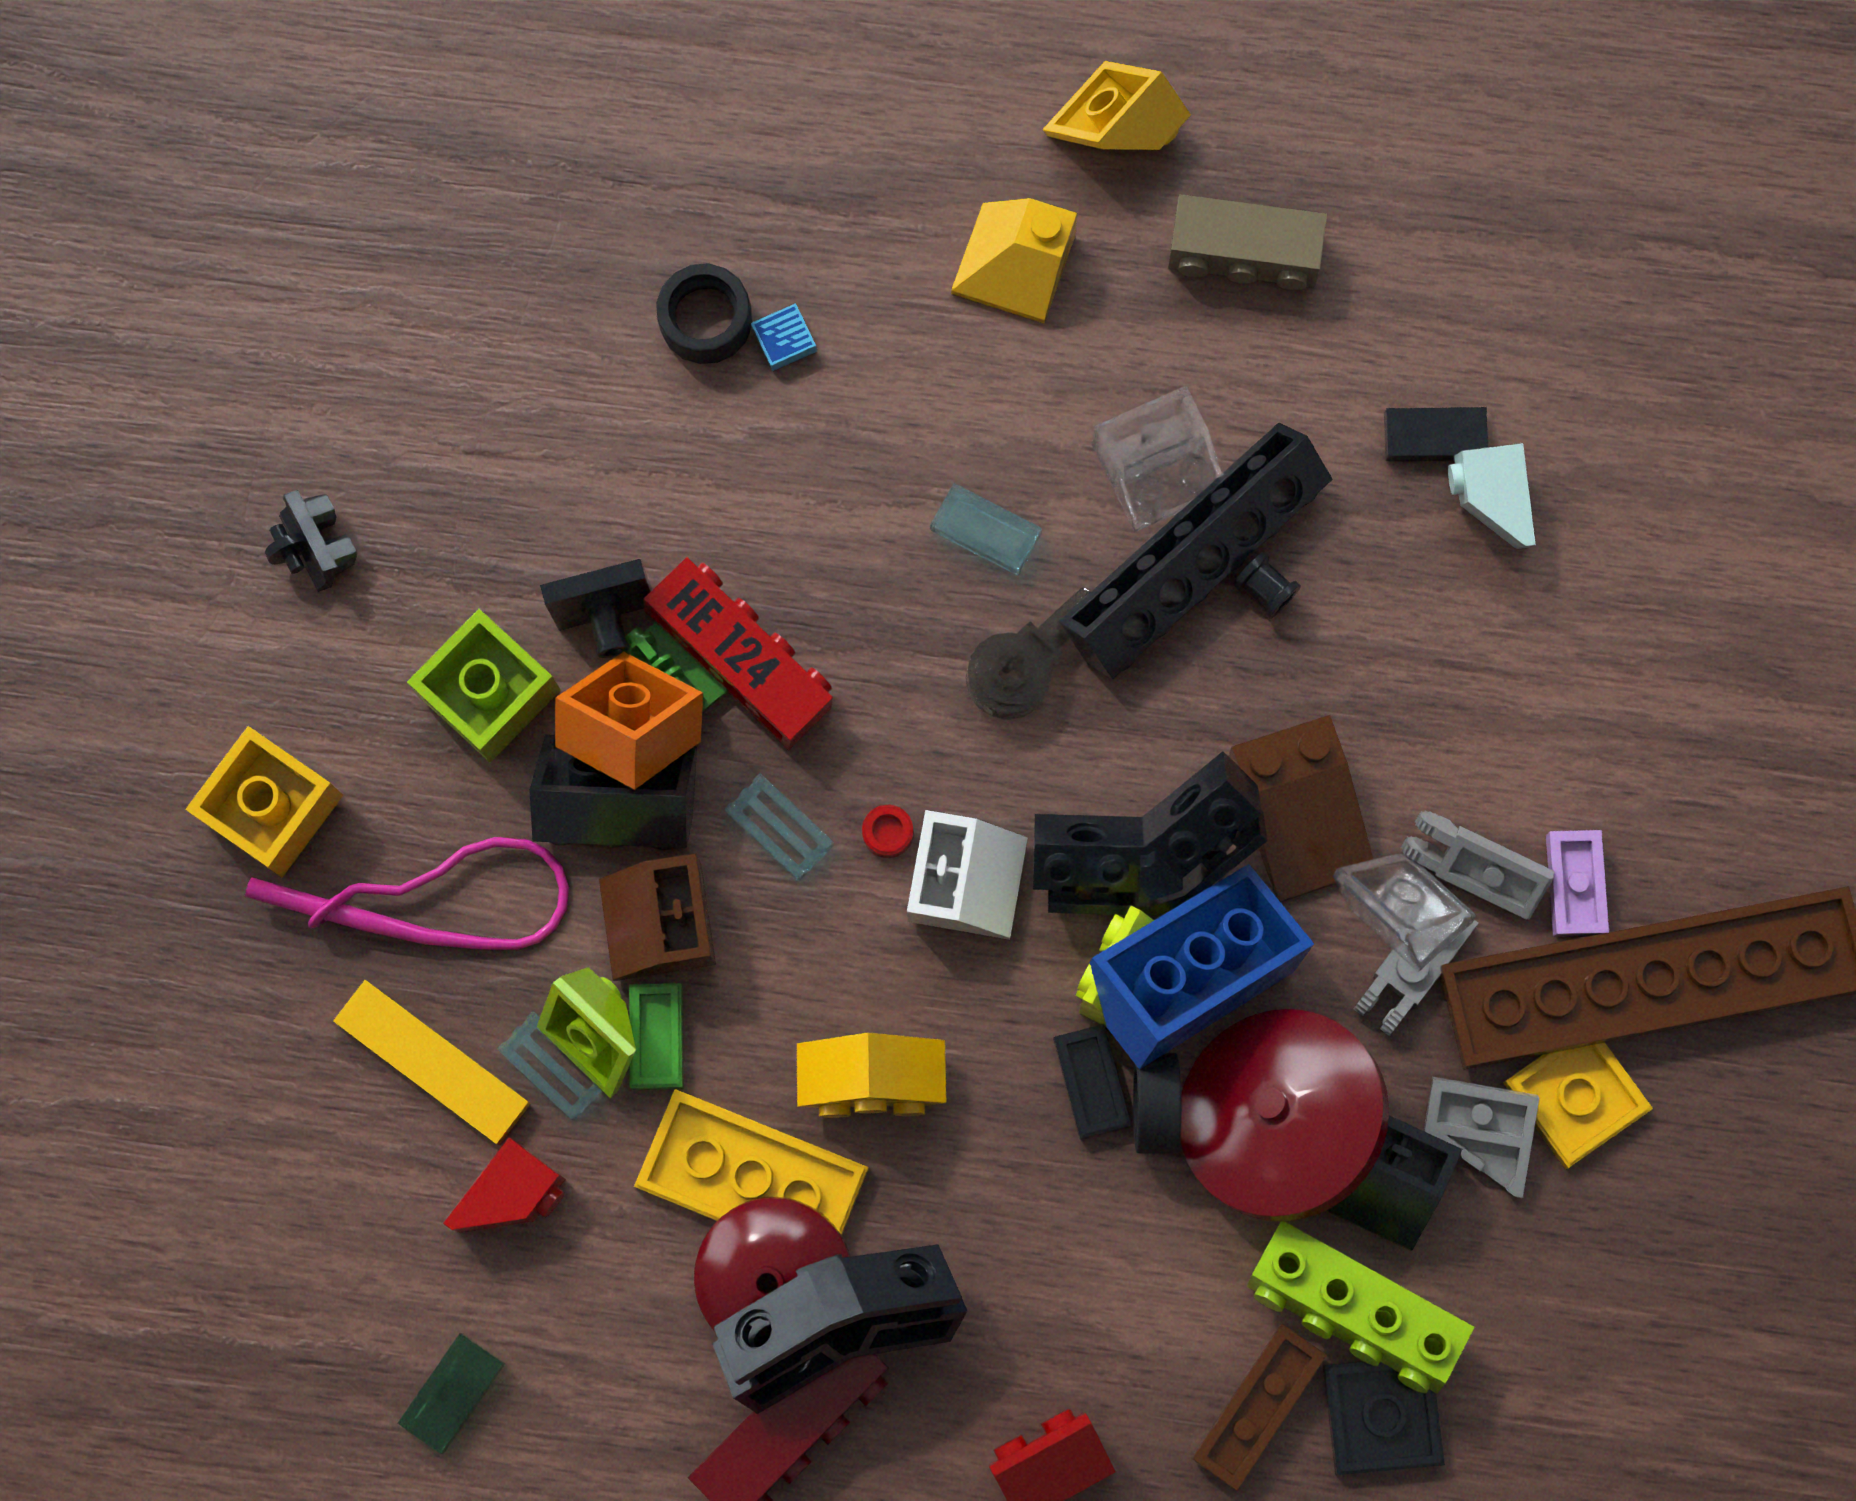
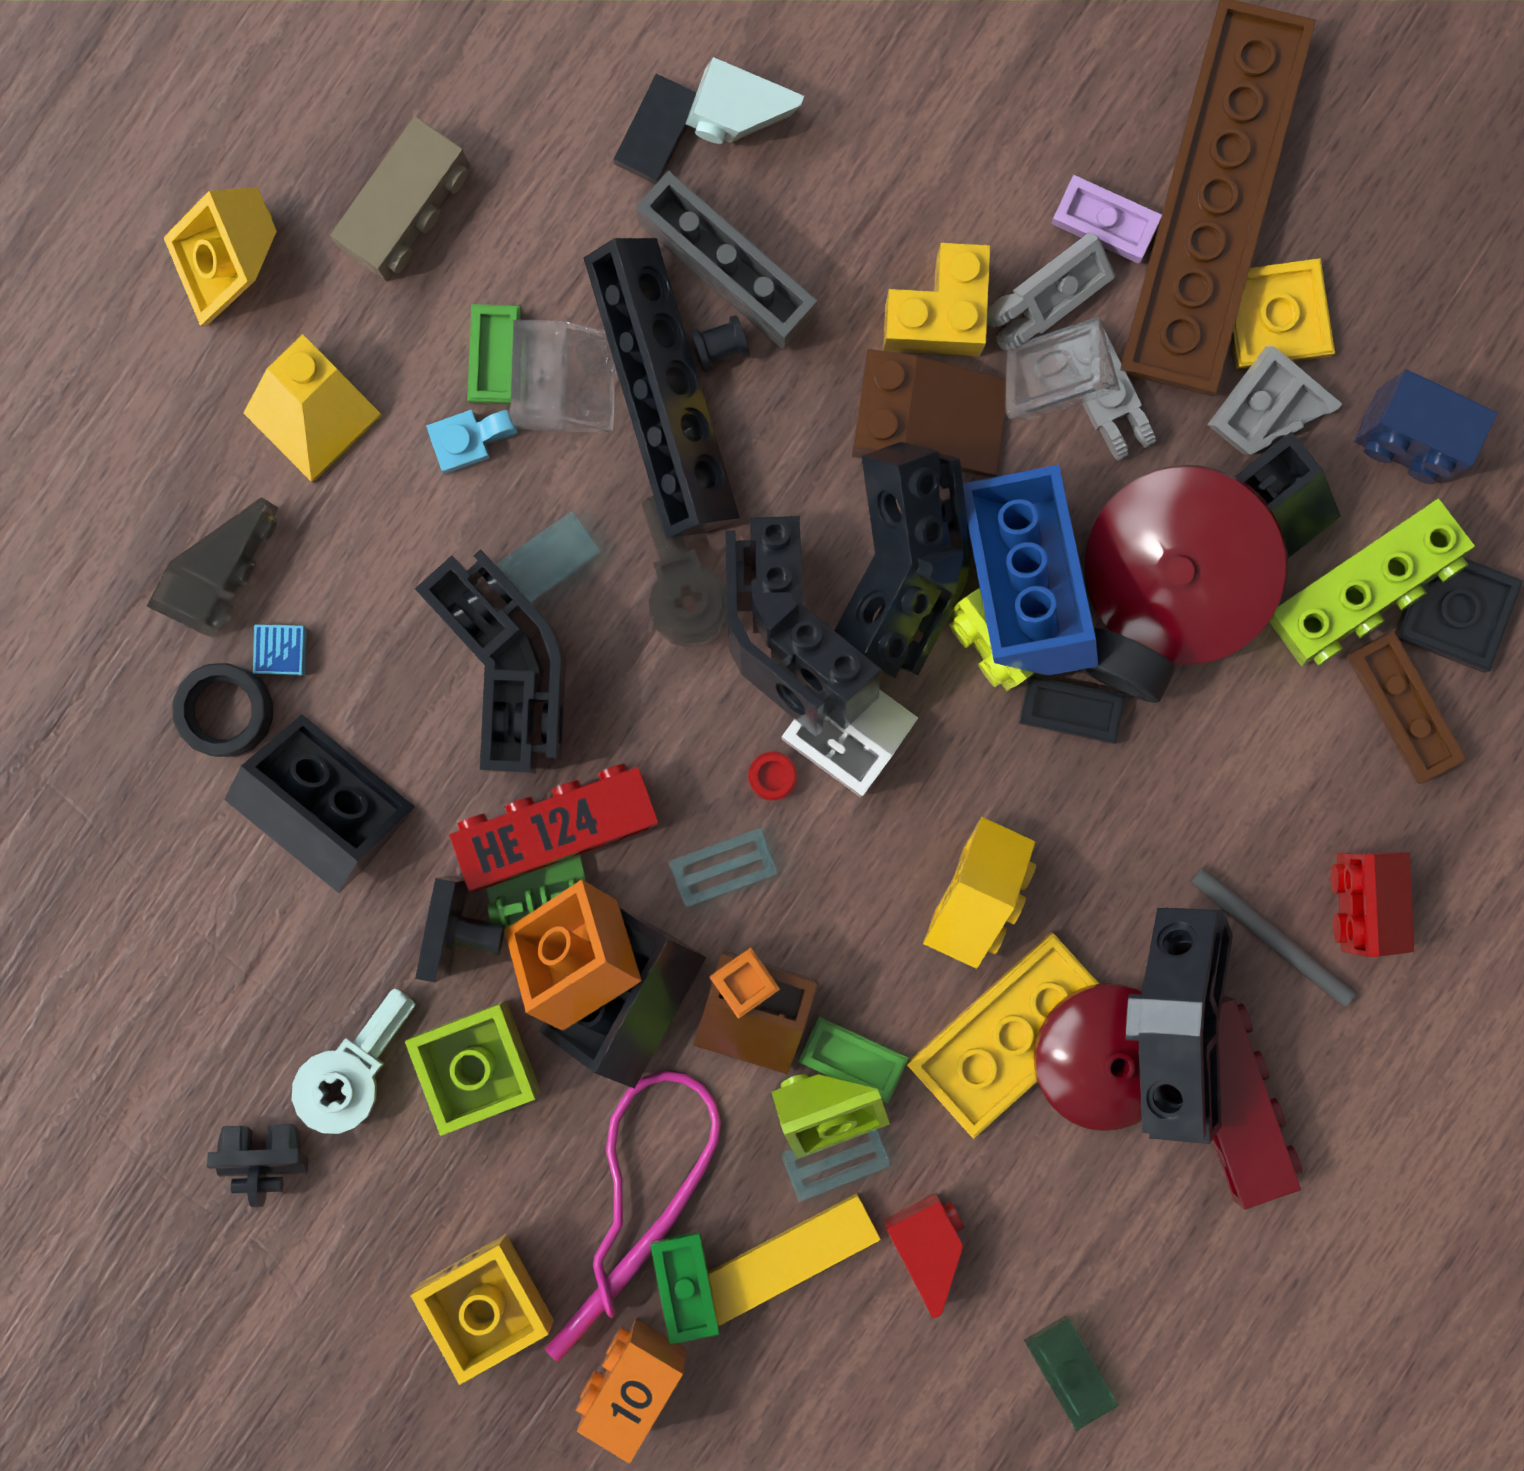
camera: 70 degrees left, 10 degrees up
(249, 970) = (632, 1391): none -> orange brick
(367, 977) = (685, 1287): none -> green plate
(434, 581) = (354, 1065): none -> light aqua piece
(661, 435) = (318, 802): none -> black slope
(678, 885) = (744, 982): none -> orange tile
(818, 241) = (205, 577): none -> clear smoke slope
(872, 542) = (510, 663): none -> black brick
(968, 1387) = (1273, 937): none -> dark grey bar
(1018, 782) = (810, 664): none -> black brick
(1059, 404) = (464, 440): none -> medium azure plate
(1149, 384) = (491, 353): none -> bright green tile
(1344, 551) = (726, 260): none -> dark grey brick
(1405, 781) = (951, 316): none -> yellow brick
(1536, 1281) = (1424, 428): none -> dark blue brick

